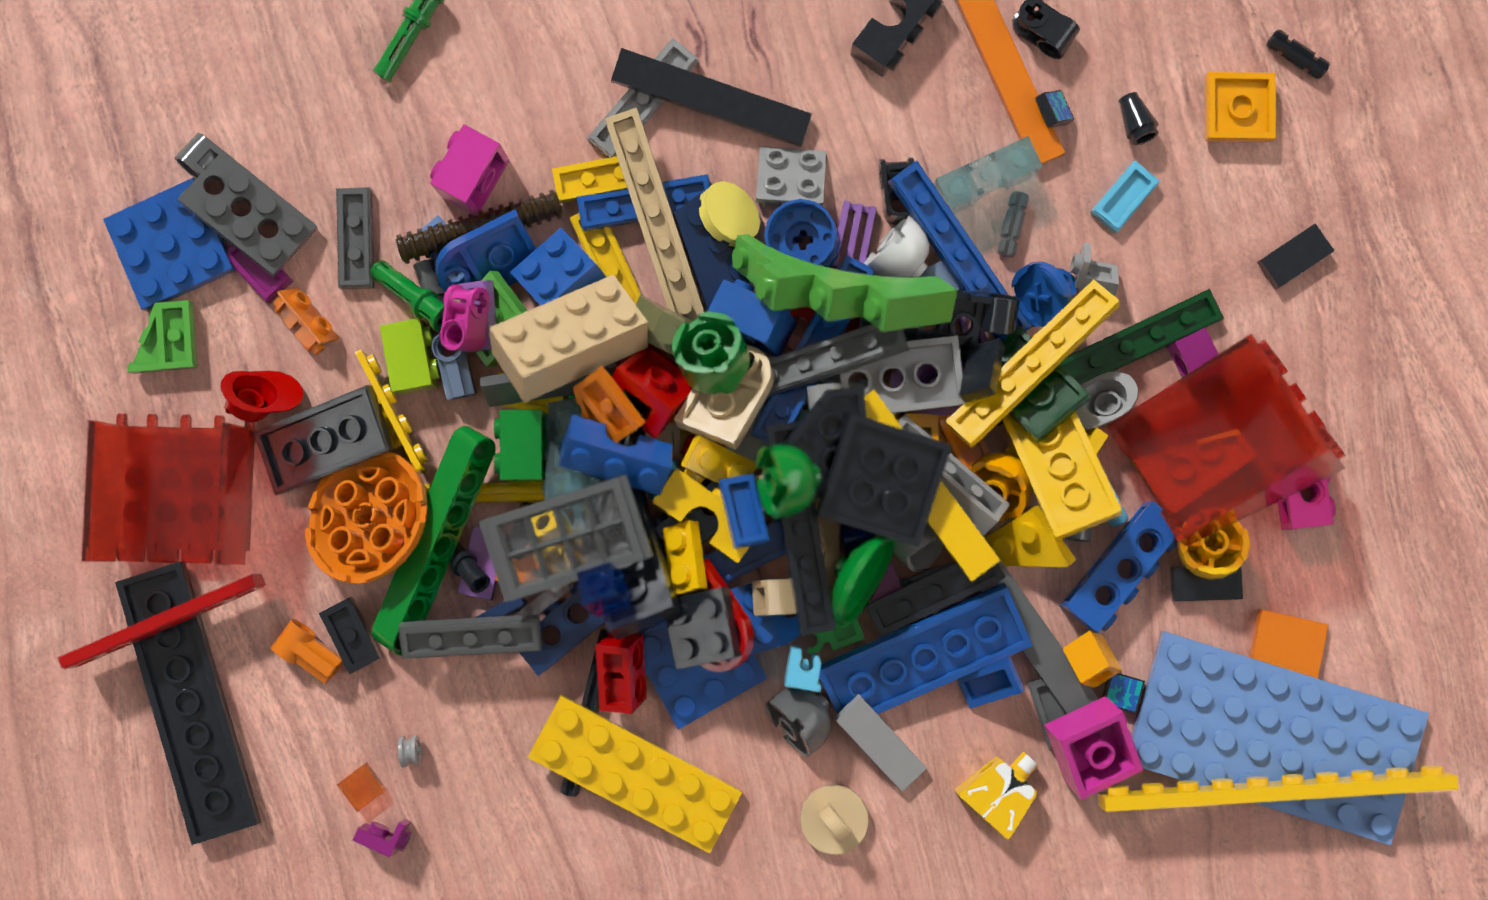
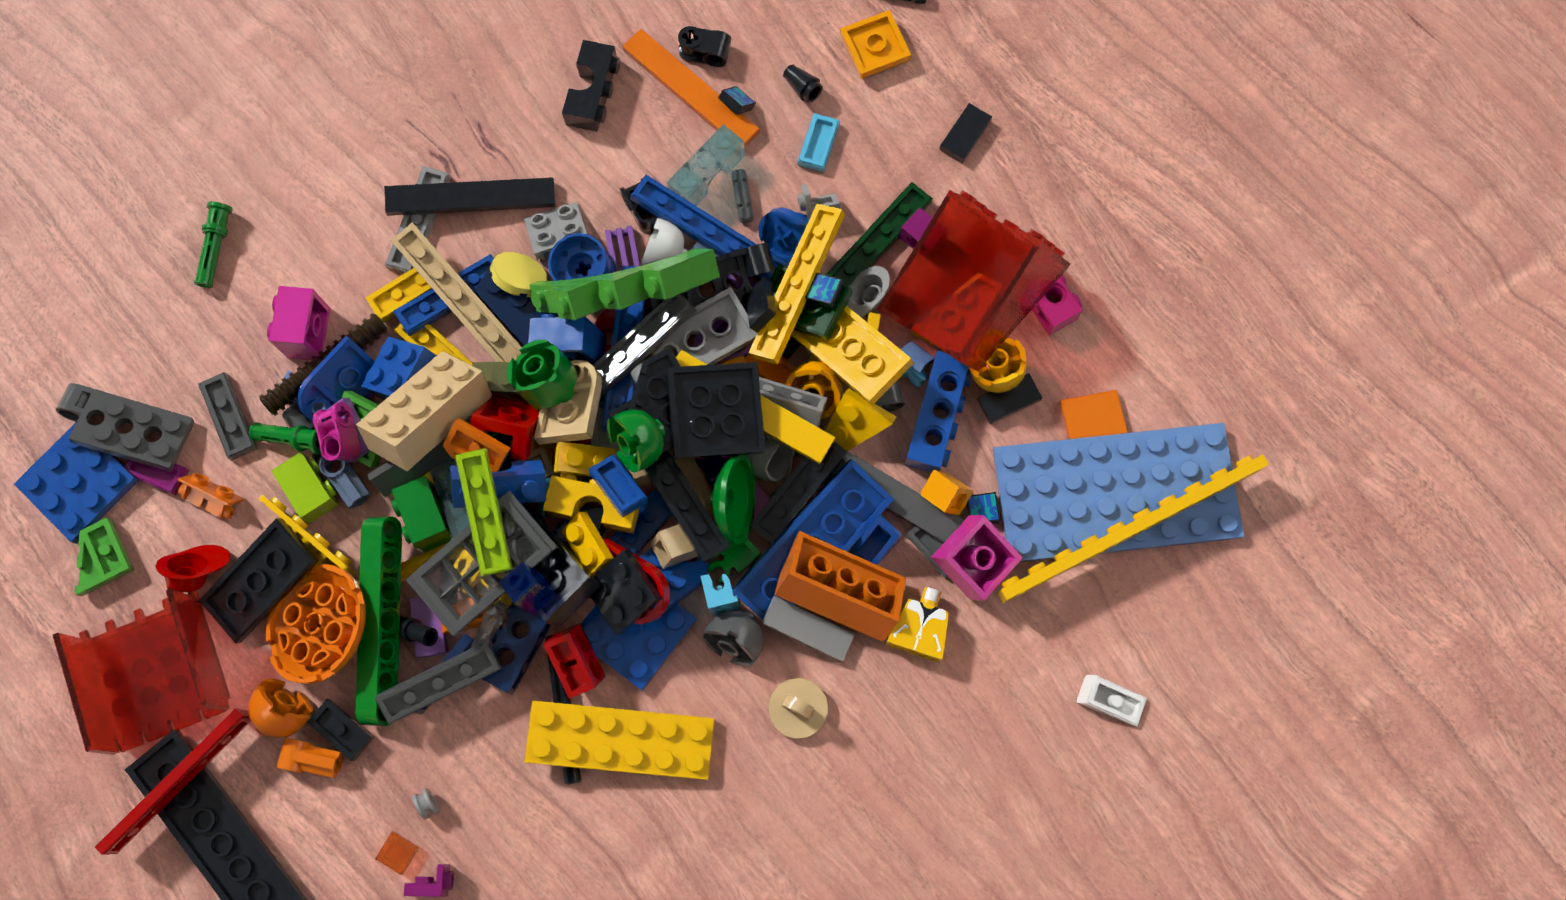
camera: 25 degrees left, 10 degrees down
(294, 589) = (278, 710): none -> orange cylinder
(589, 489) = (483, 512): none -> lime tile
(935, 716) = (841, 586): none -> orange slope
(1060, 386) = (825, 290): none -> tile
(1127, 493) = (919, 356): none -> medium blue tile

